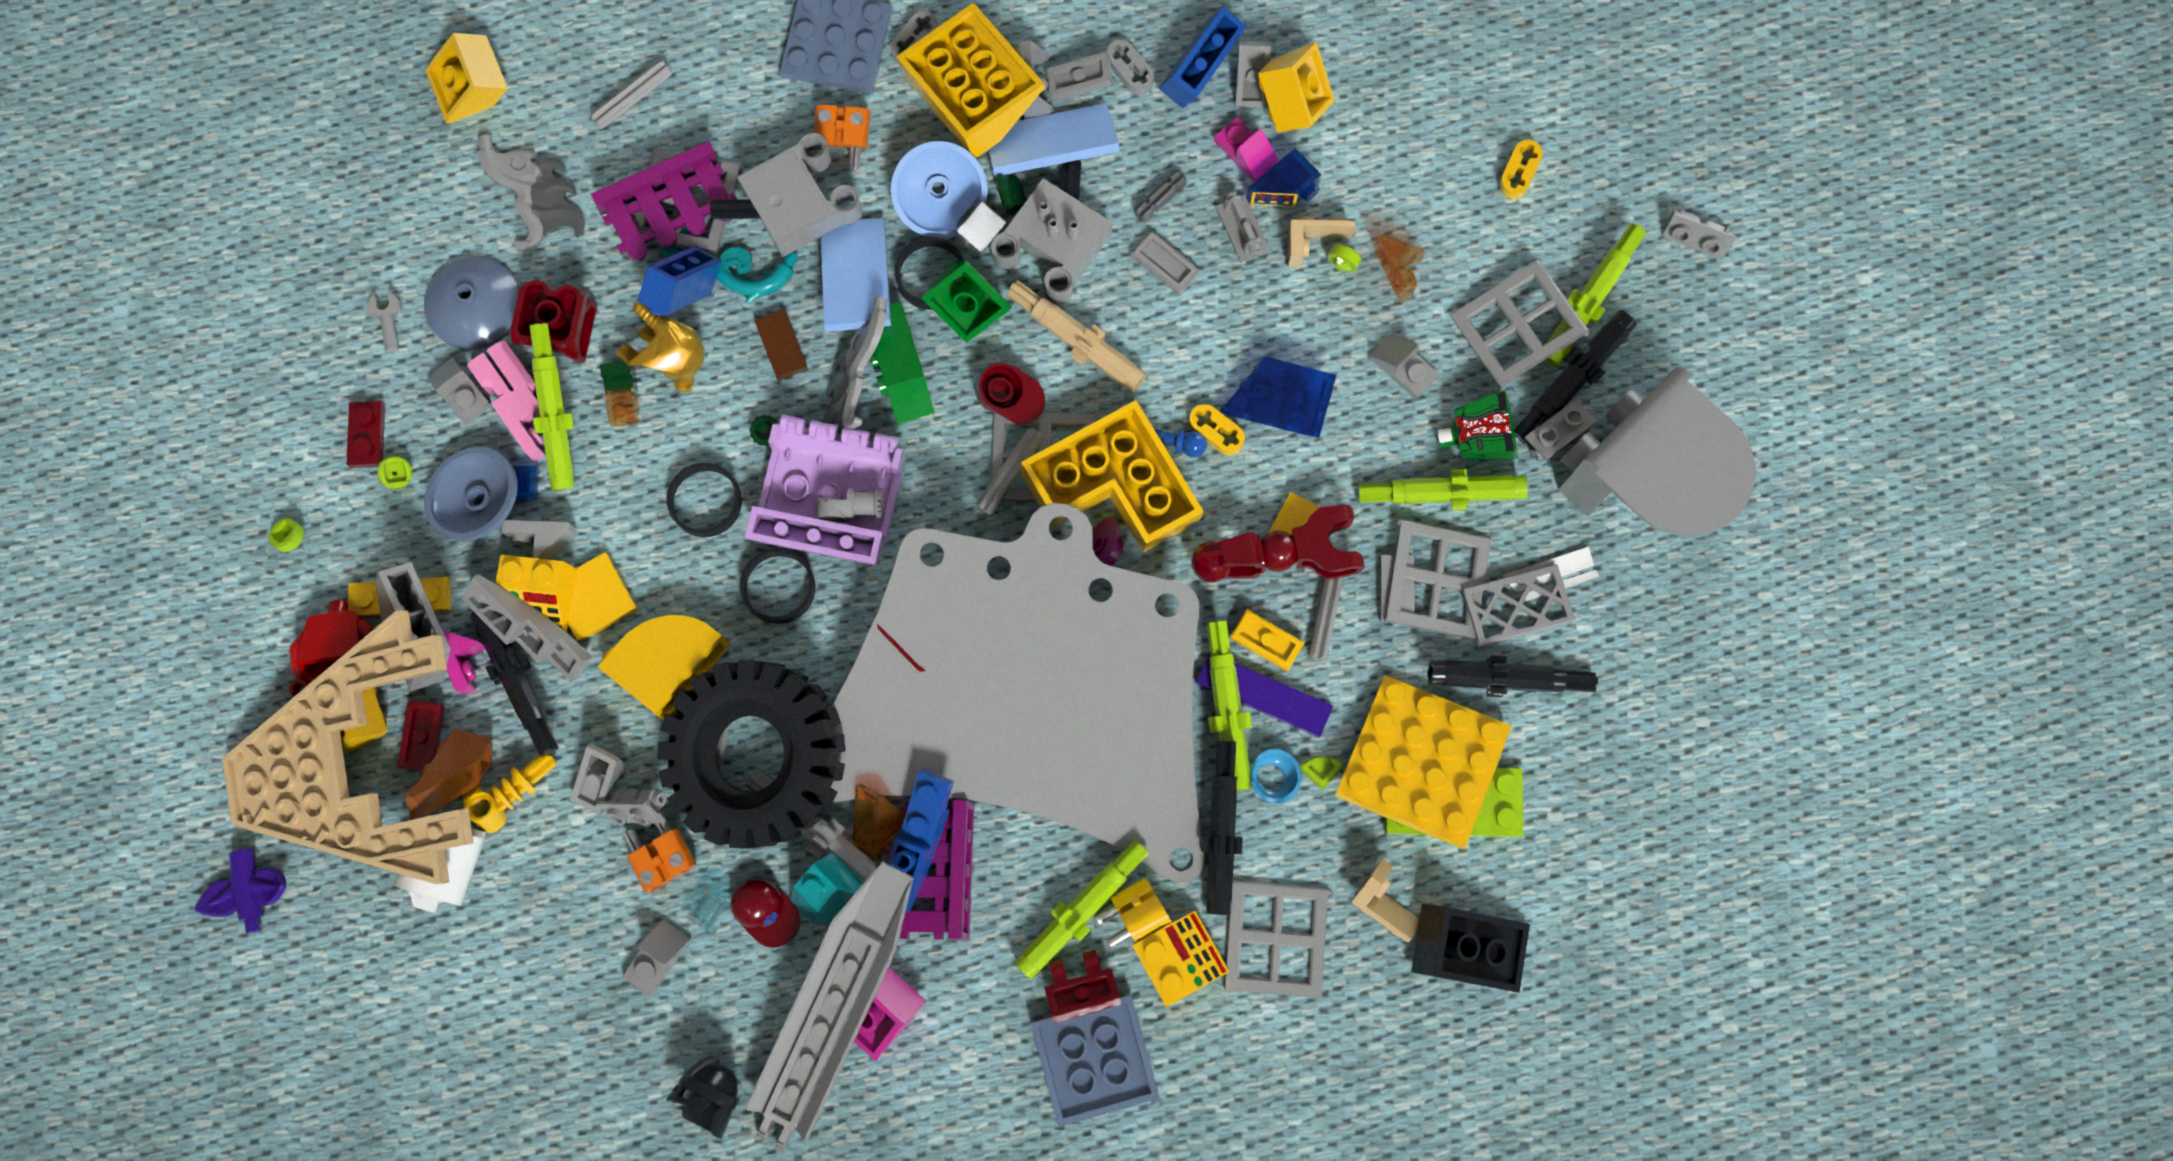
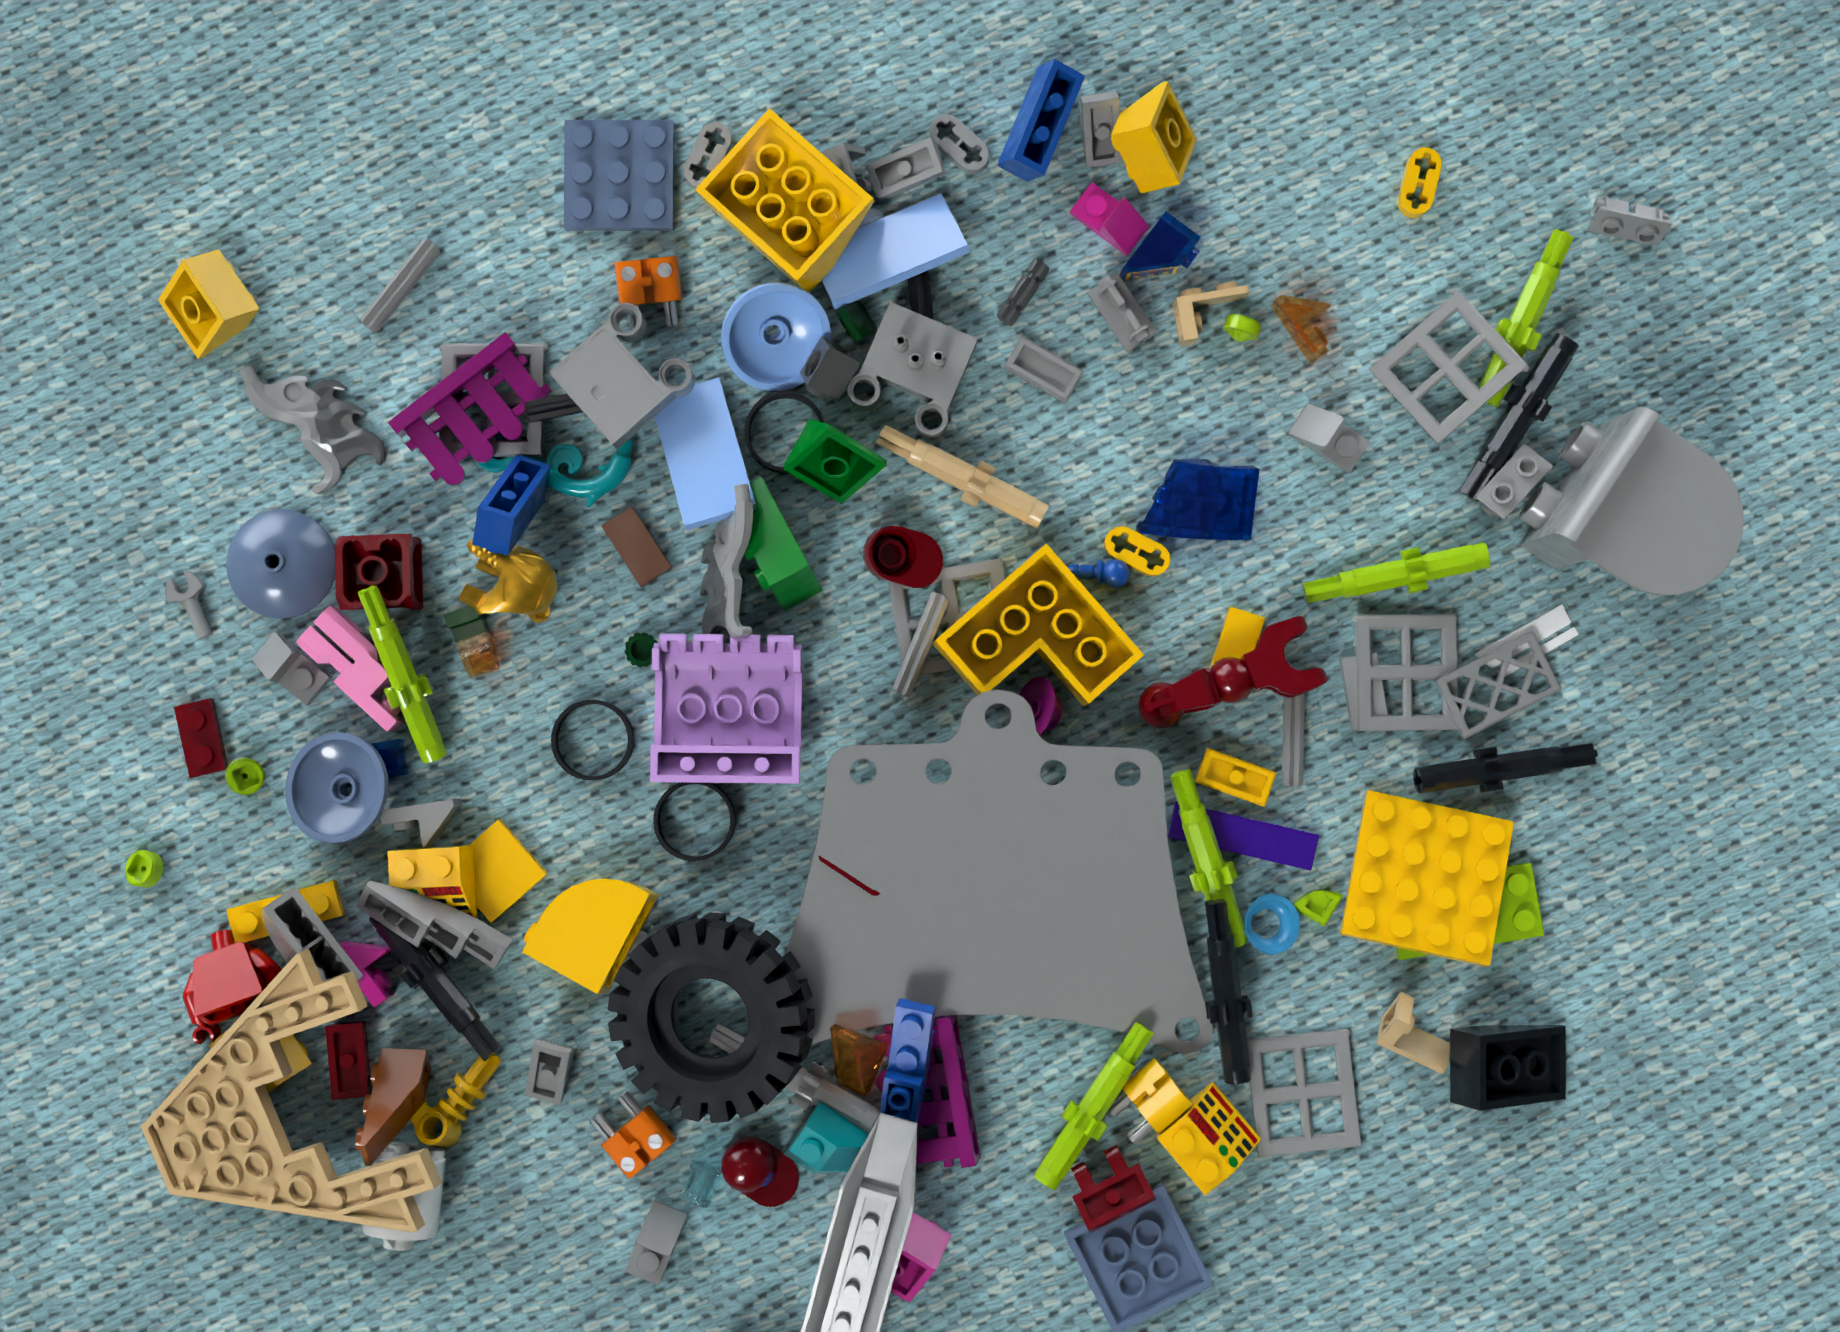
camera: 15 degrees left, 10 degrees up
(244, 891) = (201, 1261): dark purple plant -> none
(634, 806) = (602, 1091): light grey hinge -> none
(856, 504) = (764, 717): light grey connector -> none
(1483, 429) = (1428, 498): torso -> none

